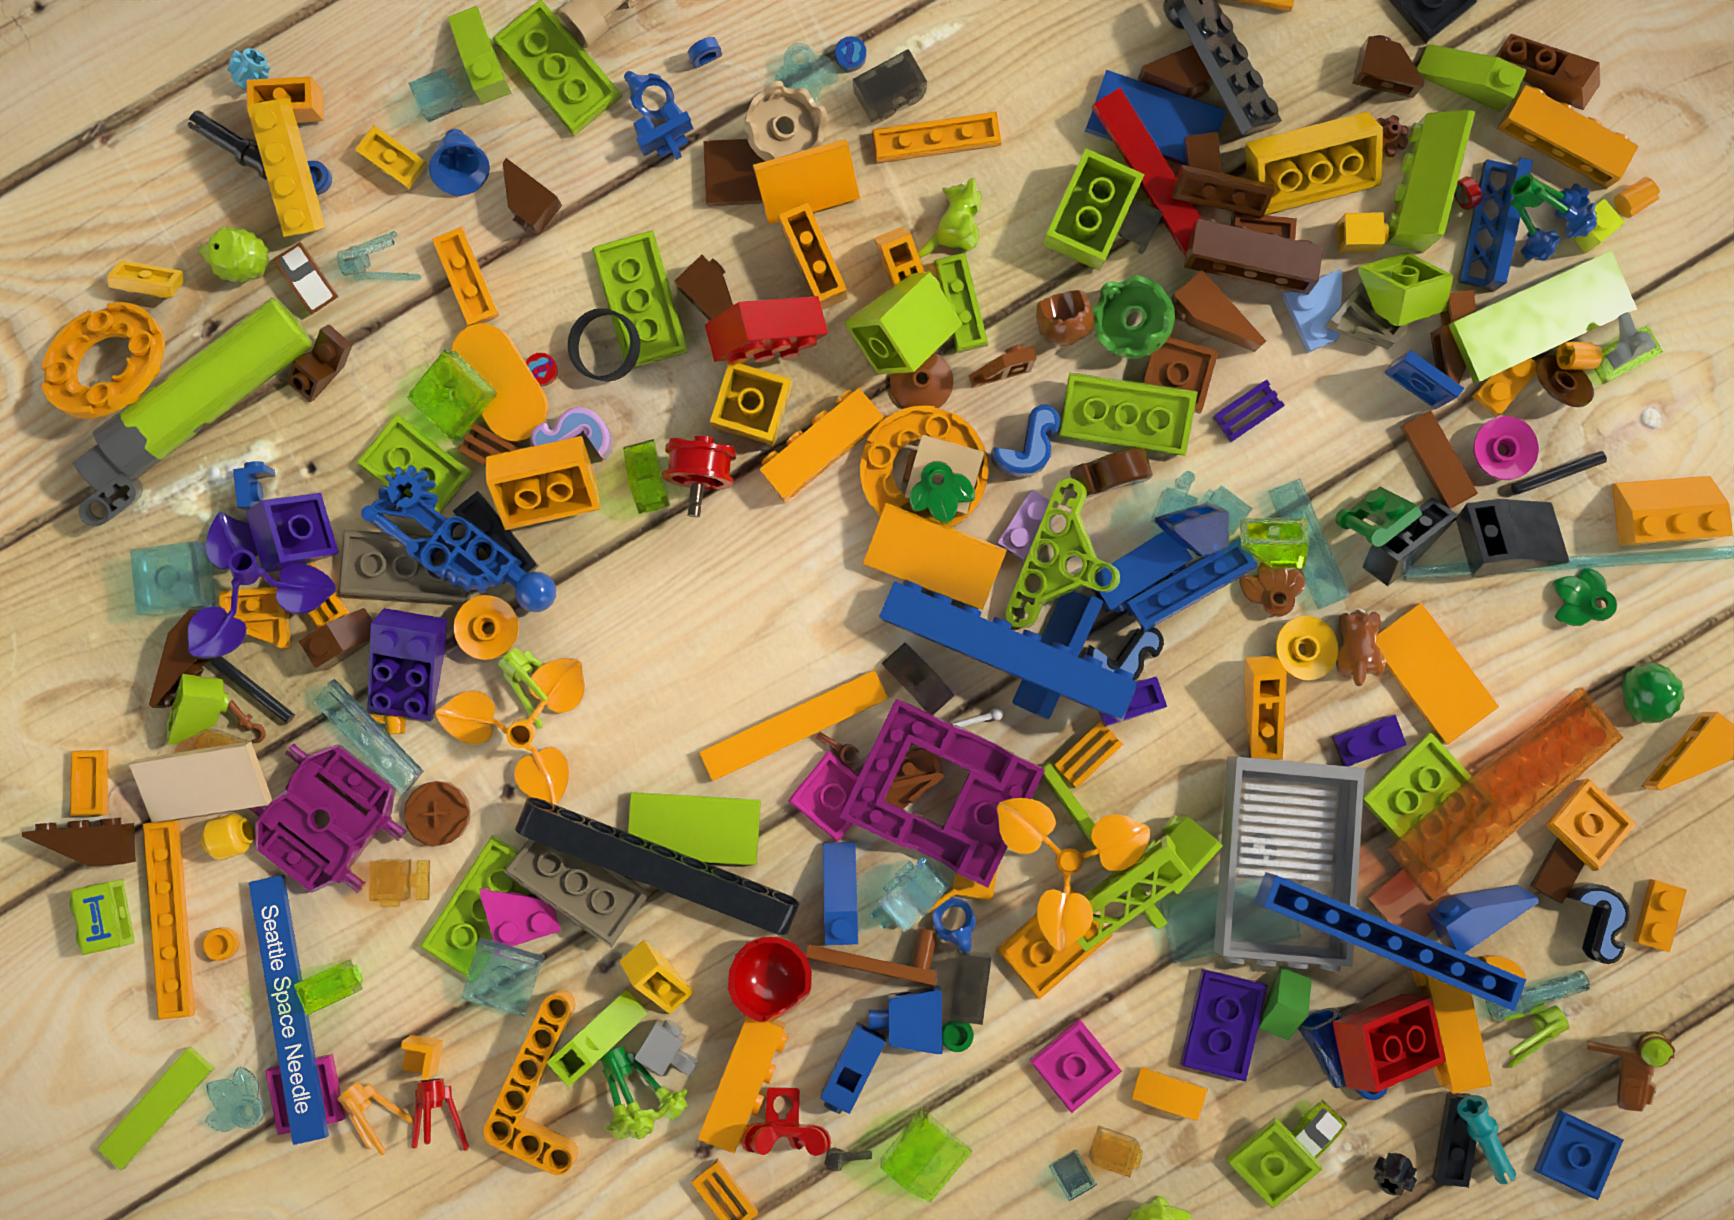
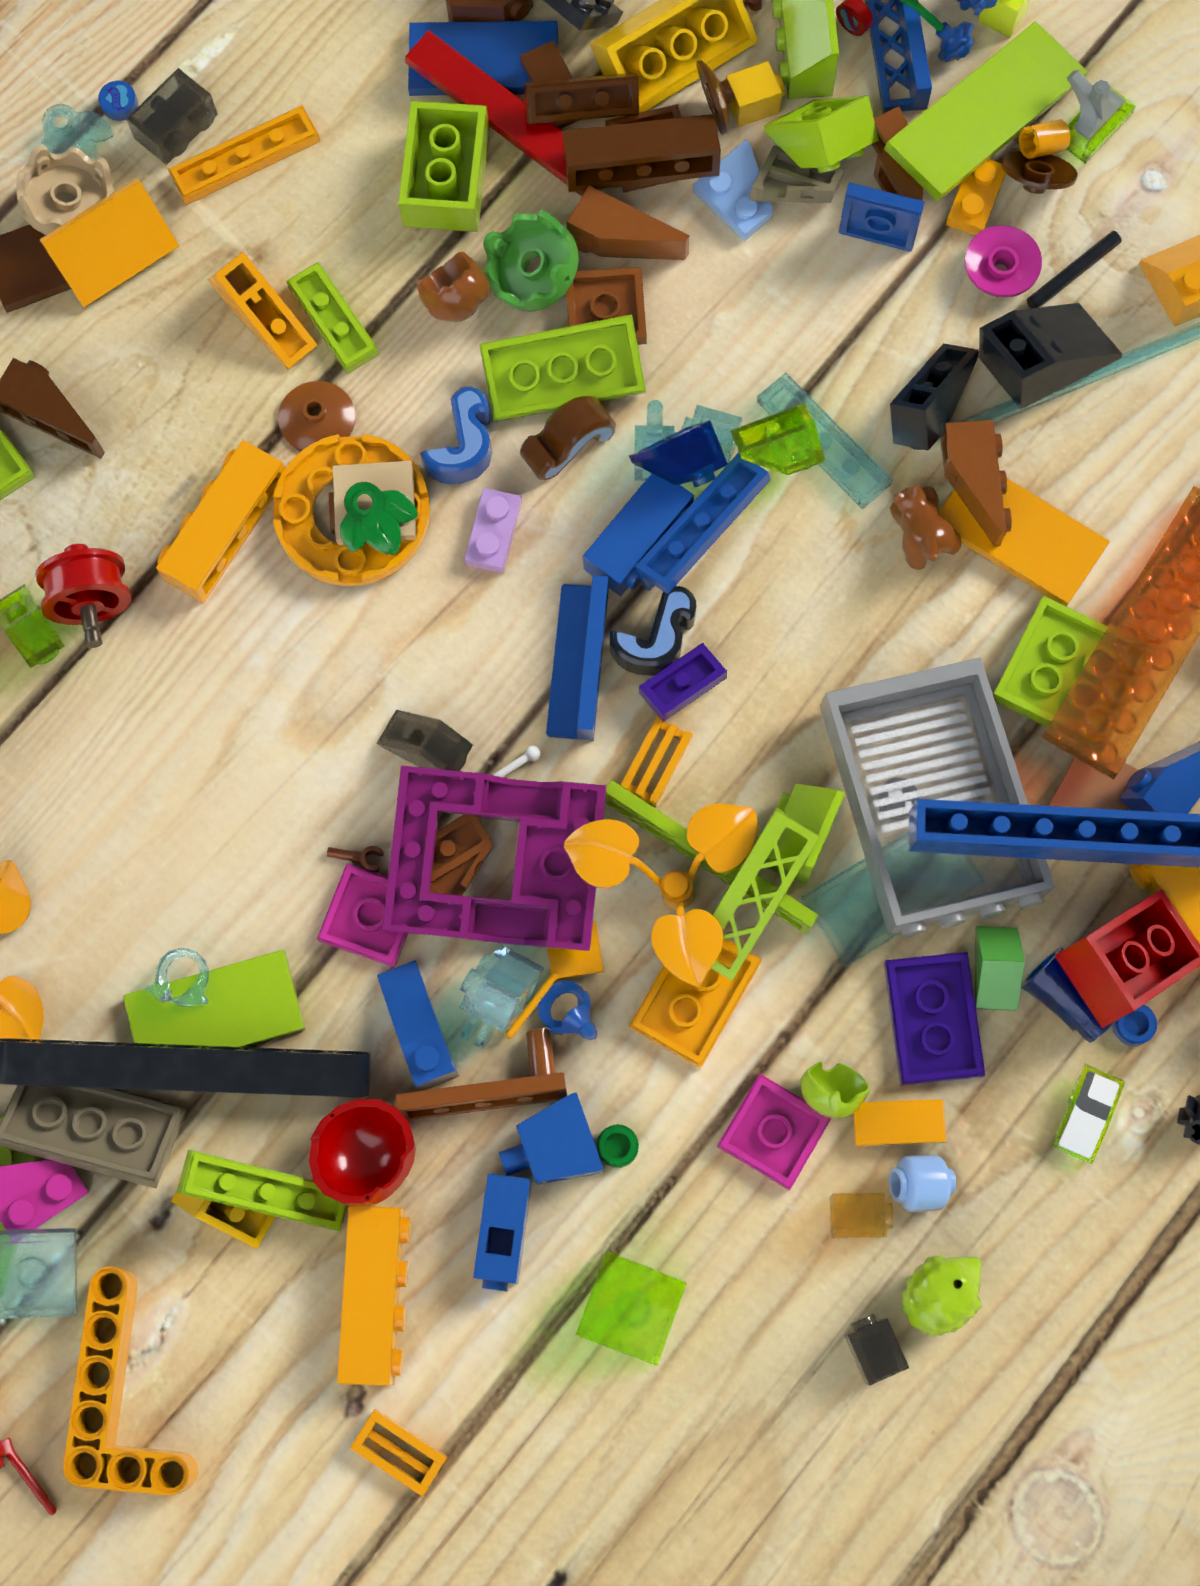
camera: 15 degrees left, 10 degrees down
(597, 1038) = (172, 1306): lime slope -> none
(631, 1120) = (249, 1377): plant -> none
(660, 797) = (195, 994): none -> clear light blue piece
(663, 1048) = (260, 1290): light grey brick -> none
(684, 980) = (258, 1190): none -> lime tile
(751, 403) = (124, 500): yellow brick -> none
(762, 1136) = (463, 1331): red piece -> none
(766, 329) = (109, 406): red brick -> none
(793, 725) = (295, 850): light orange tile -> none
(813, 255) = (143, 319): light orange brick -> none
(836, 1157) = (521, 1351): clear smoke hand -> none
(904, 324) = (271, 354): lime slope -> none
(934, 556) = (395, 598): light orange tile -> none
(957, 225) = (297, 233): lime animal -> none
(969, 987) = (610, 1078): clear smoke brick -> none
(1008, 650) = (517, 667): blue brick -> none
(1013, 363) = (405, 361): dark orange wing -> none
(1066, 544) = (541, 569): lime beam -> none
(1072, 1175) = (820, 1267): clear light blue slope -> none
(1131, 1054) = (834, 1091): none -> lime hair
(1140, 224) = (504, 164): clear smoke panel -> none
(1169, 1144) = (922, 1183): none -> light blue head
(1265, 706) = (840, 629): light orange slope -> none
(1270, 396) = (718, 298): dark purple tile -> none
(1273, 582) = (799, 494): dark orange plate -> none
(1274, 1163) = (1056, 1160): lime tile -> none
(1319, 643) = (867, 537): yellow dish -> none
(1331, 227) = (717, 94): none -> reddish brown dish
(1369, 740) = (978, 630): dark purple plate -> none
(1383, 508) = (888, 376): green plate -> none
(1416, 616) = (972, 469): none -> dark orange slope
(1438, 460) = (933, 300): dark orange tile -> none
(1580, 598) = (1154, 395): green plate -> none

